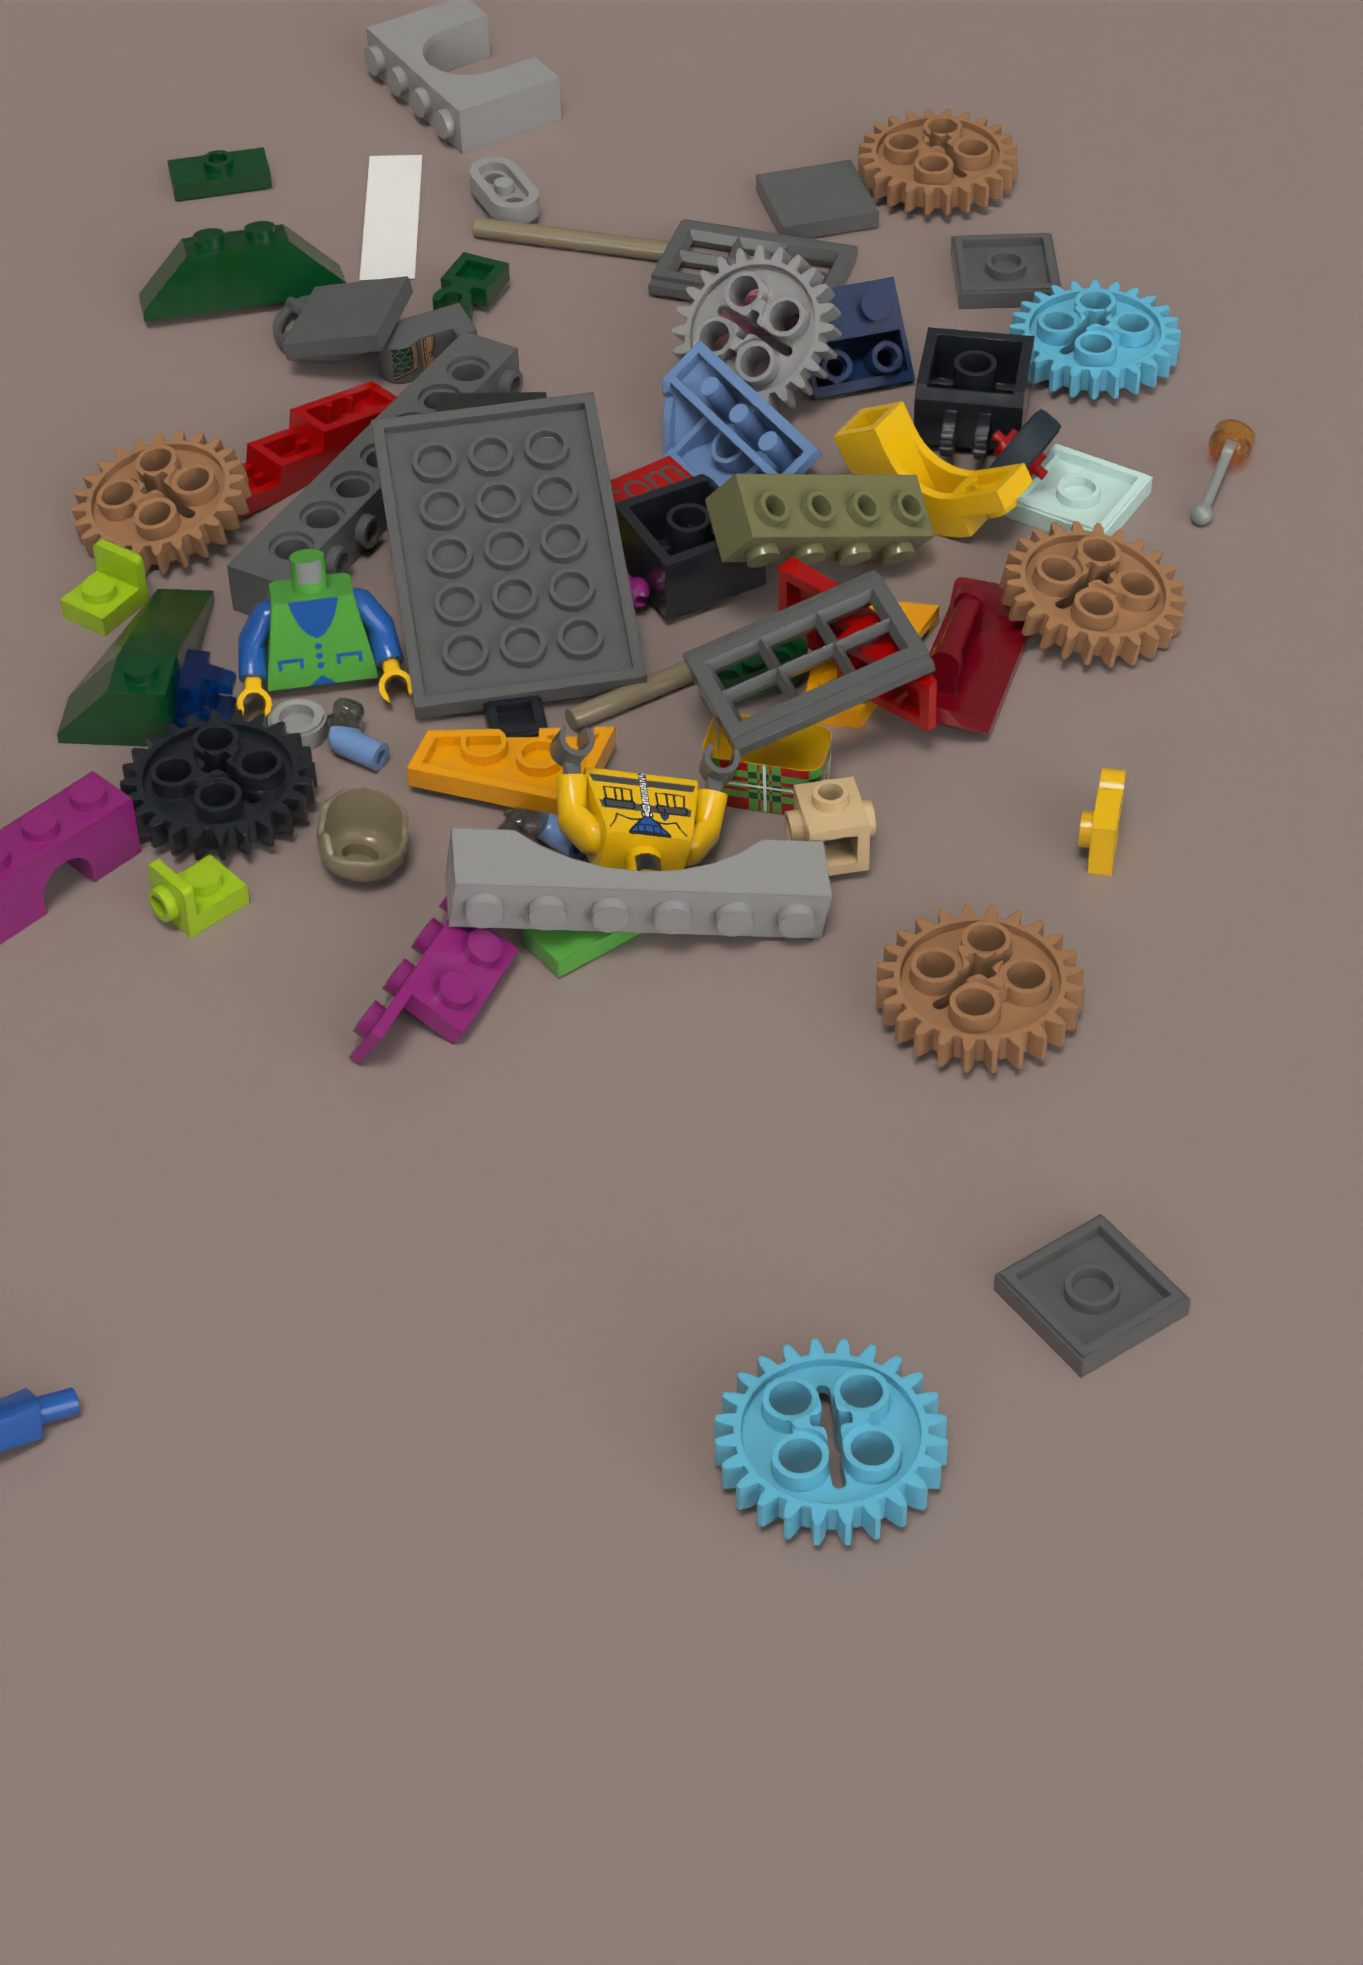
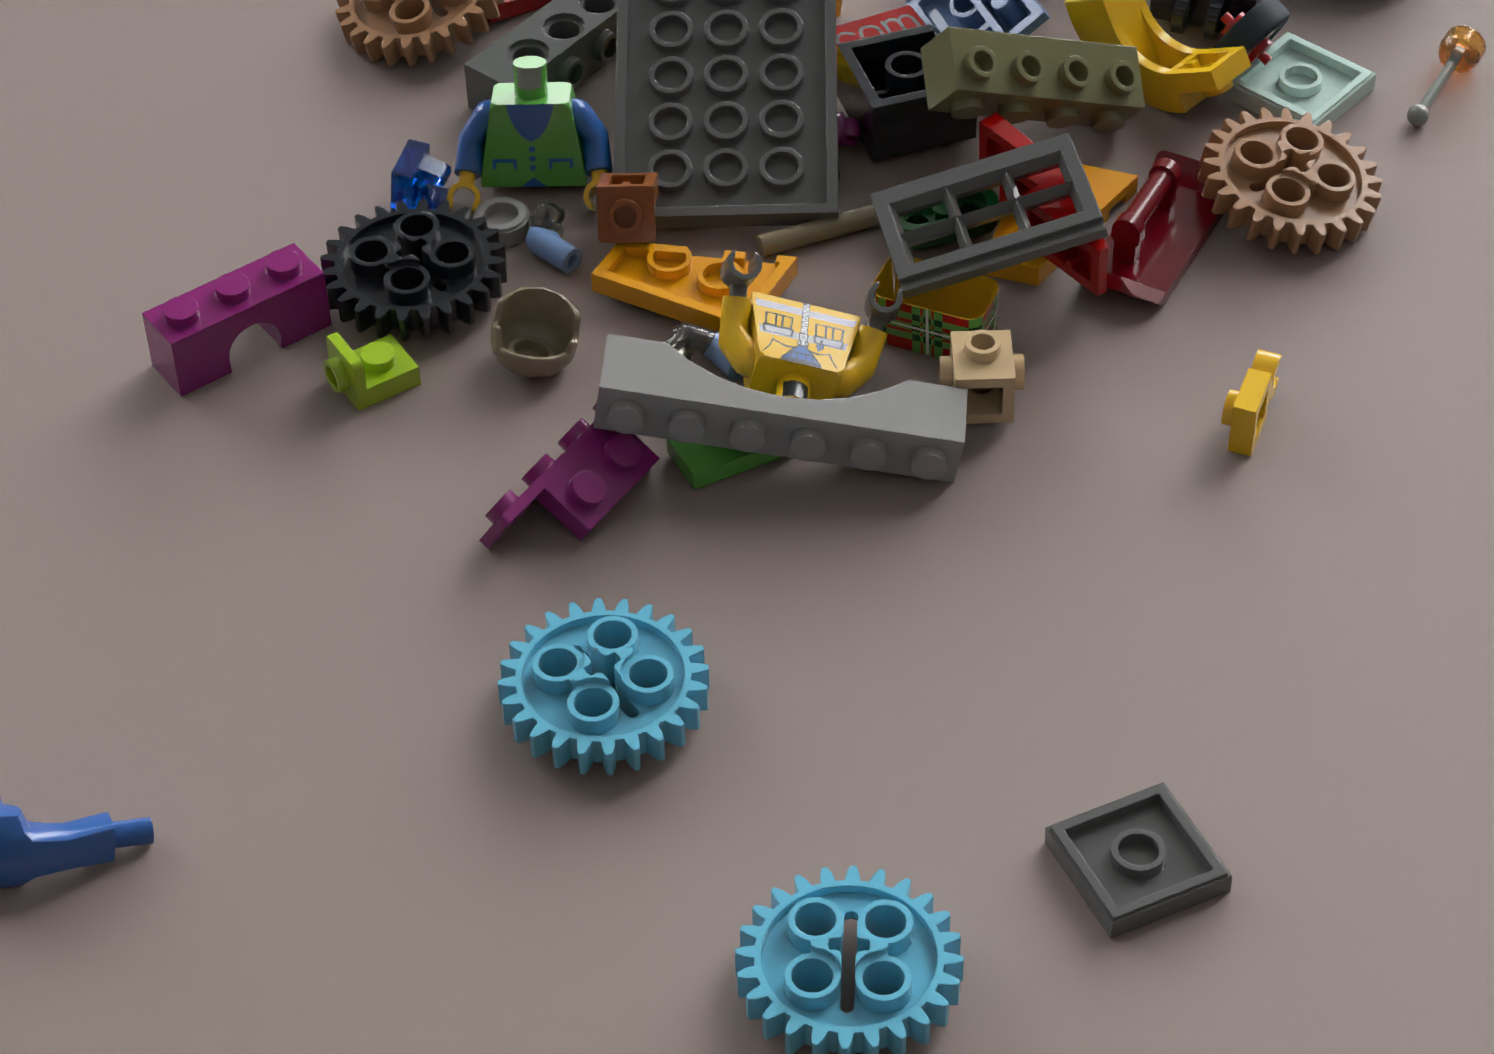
camera: 10 degrees right, 0 degrees up
(110, 592) = (356, 79): lime bracket -> none
(137, 677) = (357, 165): dark green wedge -> none
(432, 695) = (627, 207): none -> dark orange bracket
(516, 716) = (708, 236): black tile -> none
(516, 1190) = (604, 686): none -> medium azure gear
(979, 988) = (1093, 549): medium nougat gear -> none

